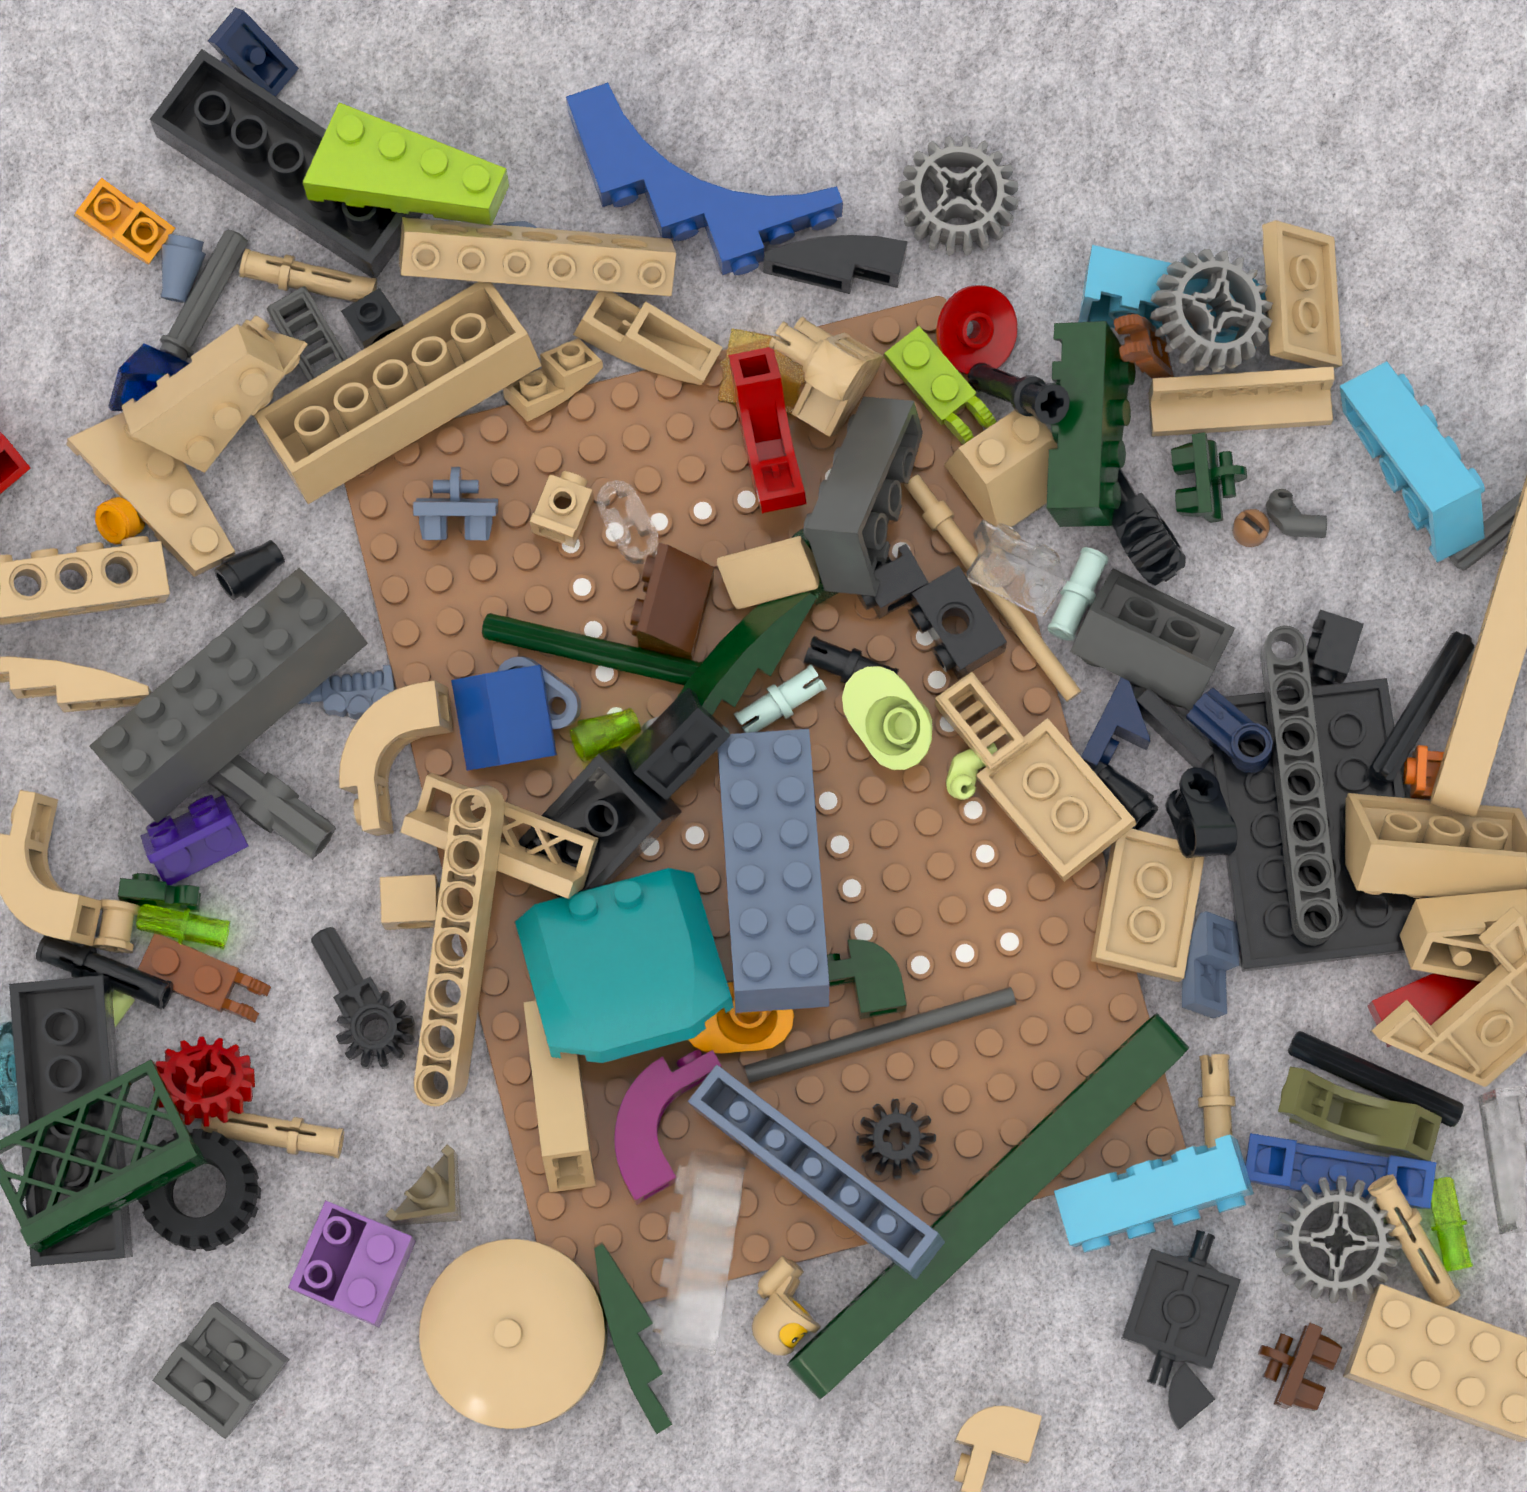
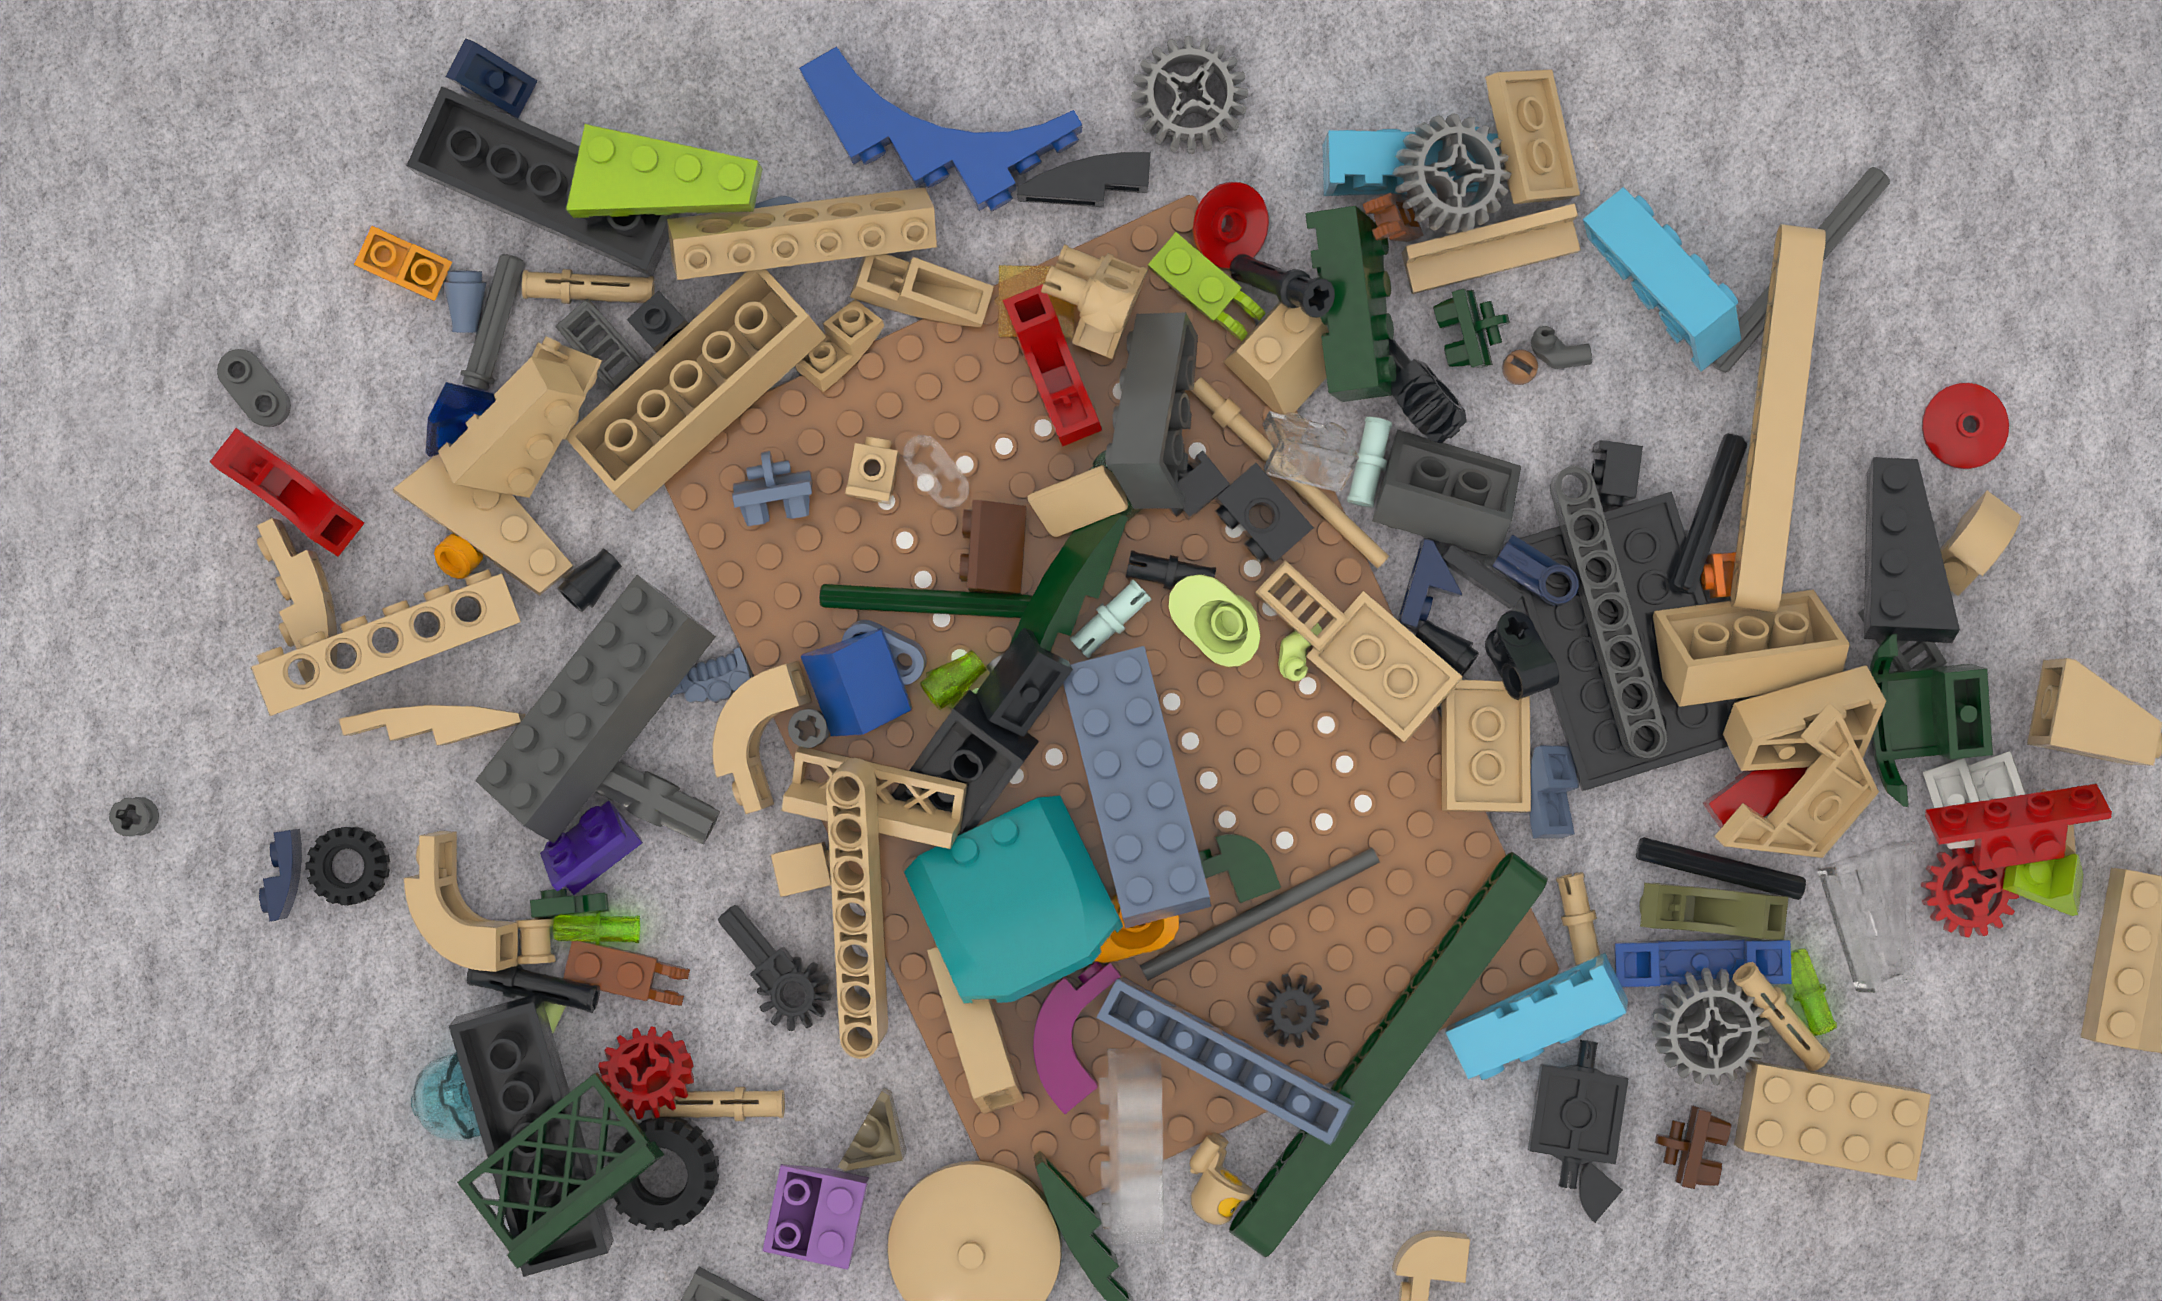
camera: 15 degrees left, 10 degrees up
(444, 741) = (796, 733): none -> dark grey bush

